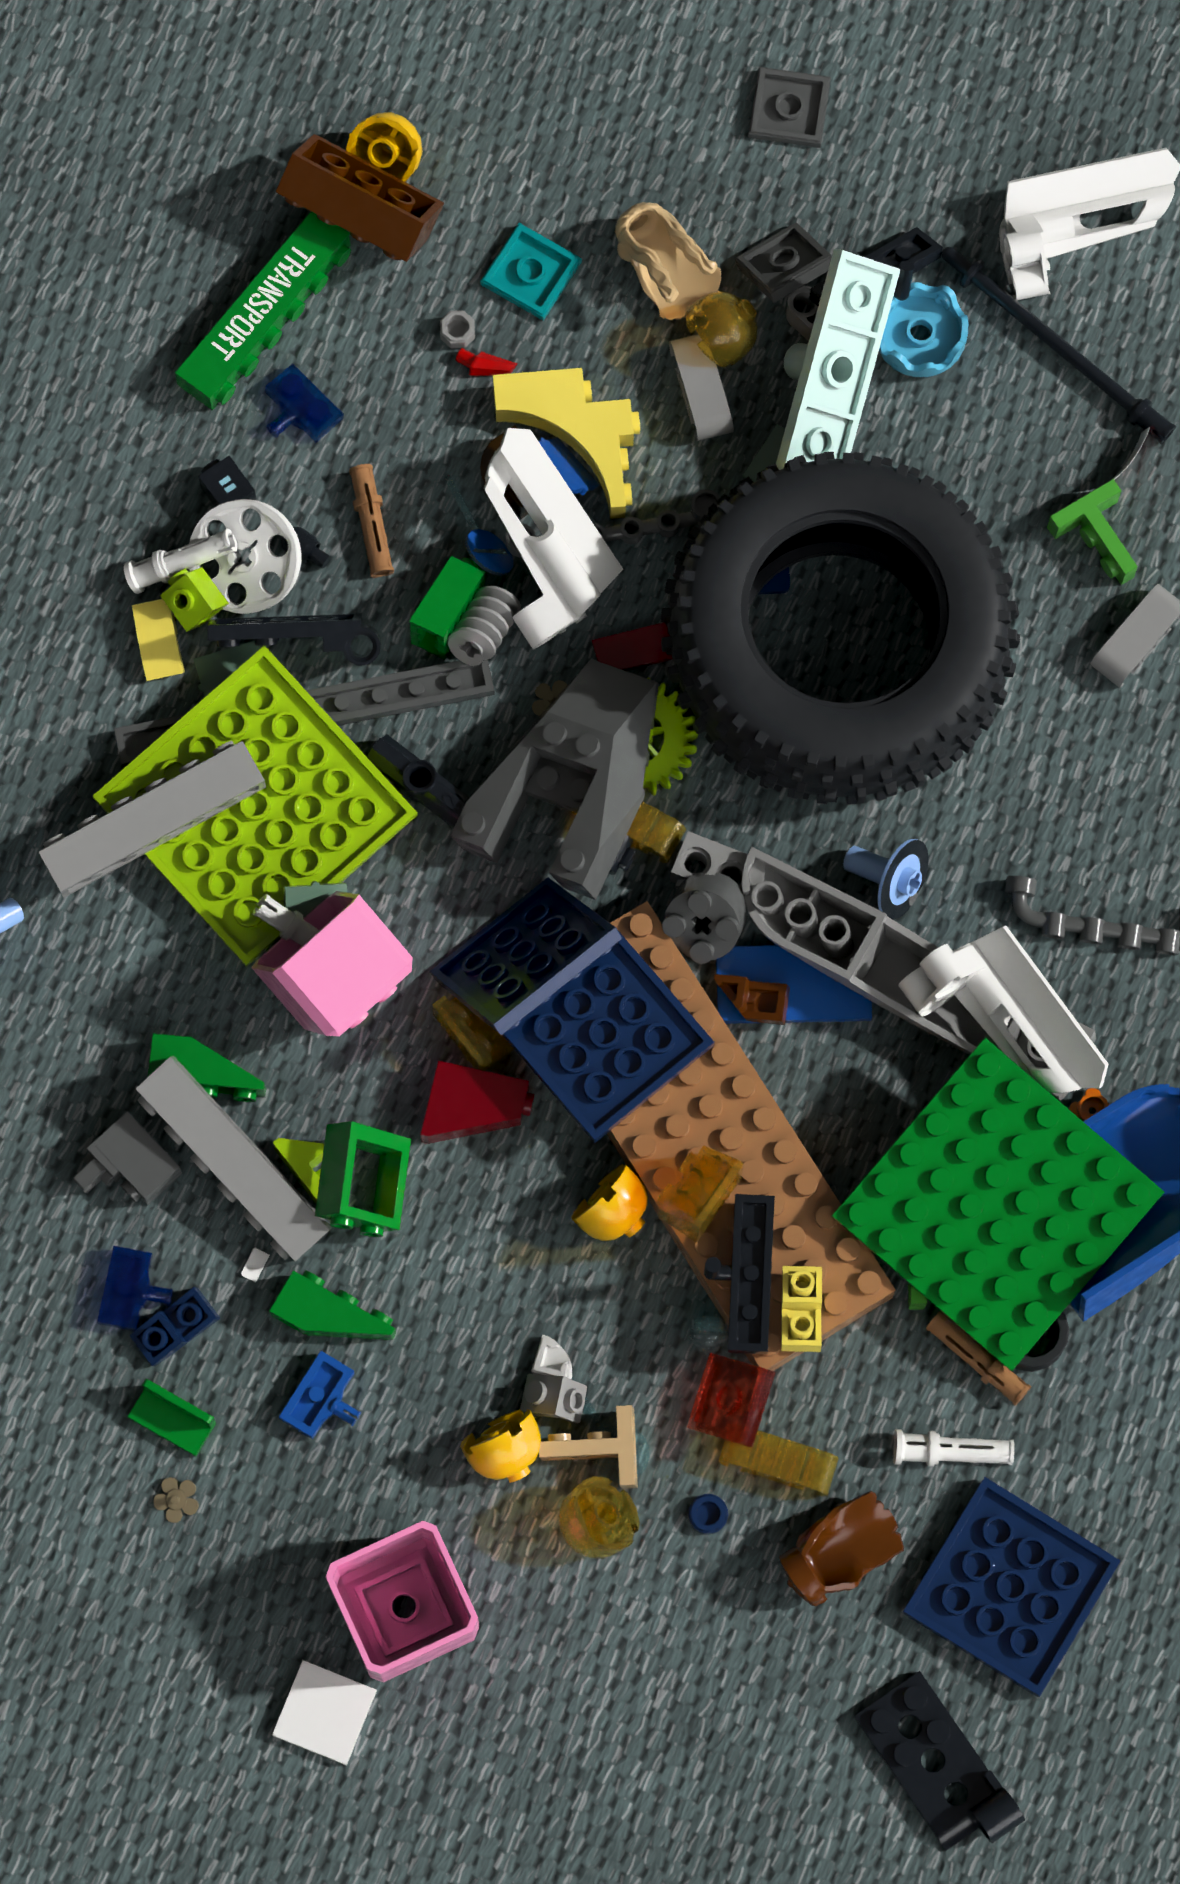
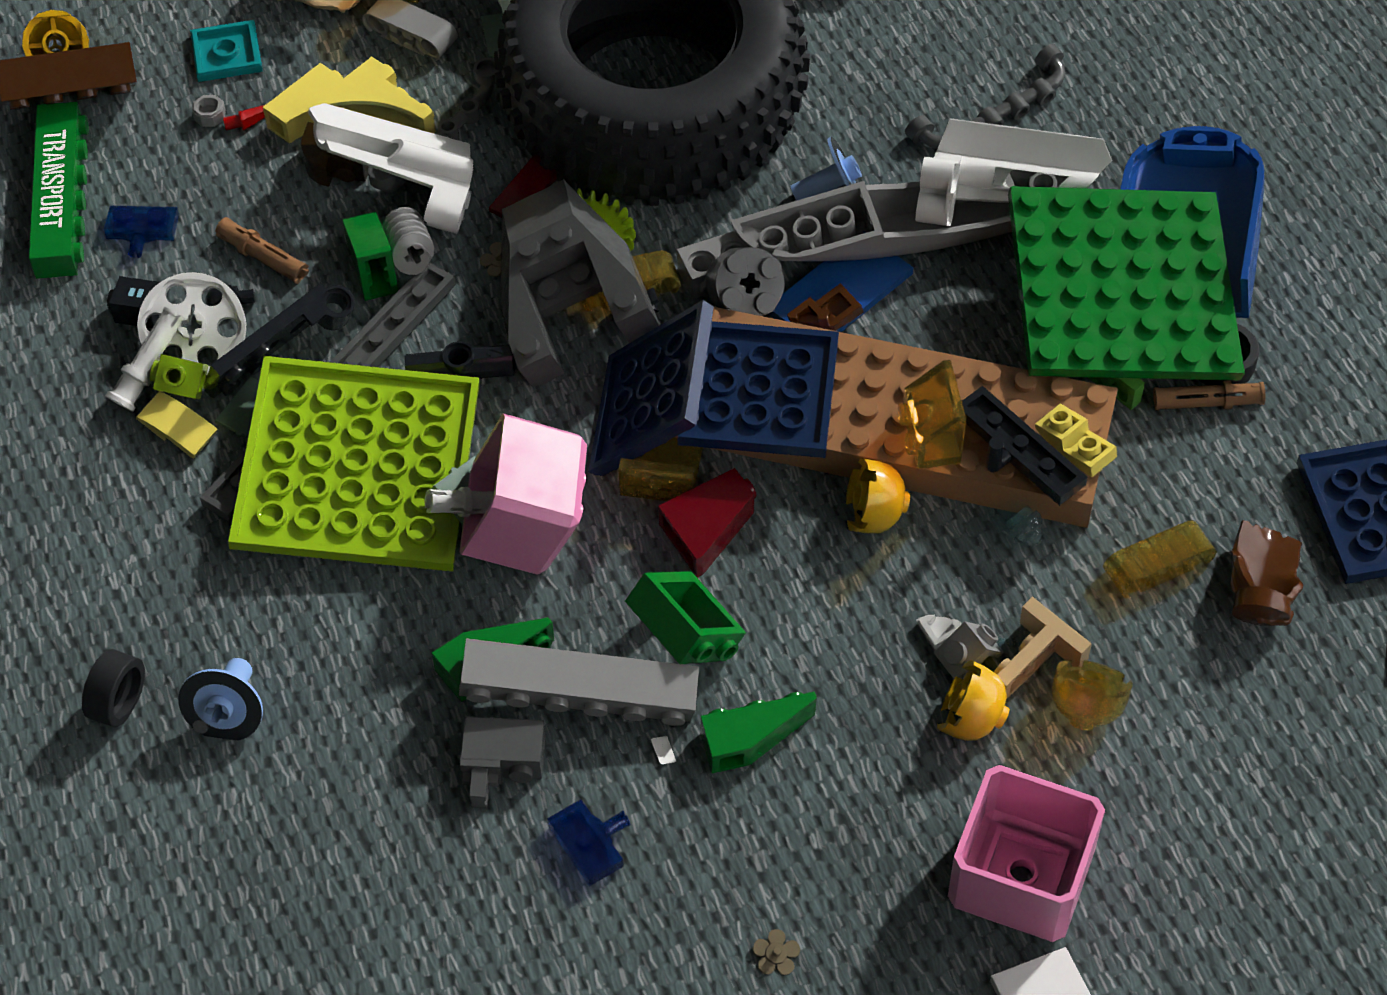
camera: 40 degrees left, 20 degrees down
(152, 818) = (289, 516): light grey brick -> none
(172, 1418) = (713, 895): green panel -> none
(174, 1327) = (649, 837): dark blue slope -> none
(301, 1159) = (627, 643): lime slope -> none
(320, 1397) = (807, 790): blue plate -> none
(482, 545) = (354, 205): blue piece -> none
(708, 1514) = (1153, 634): dark blue tile -> none
(731, 1400) = (1090, 543): clear red tile -> none
(933, 1448) = (1247, 468): white pin -> none

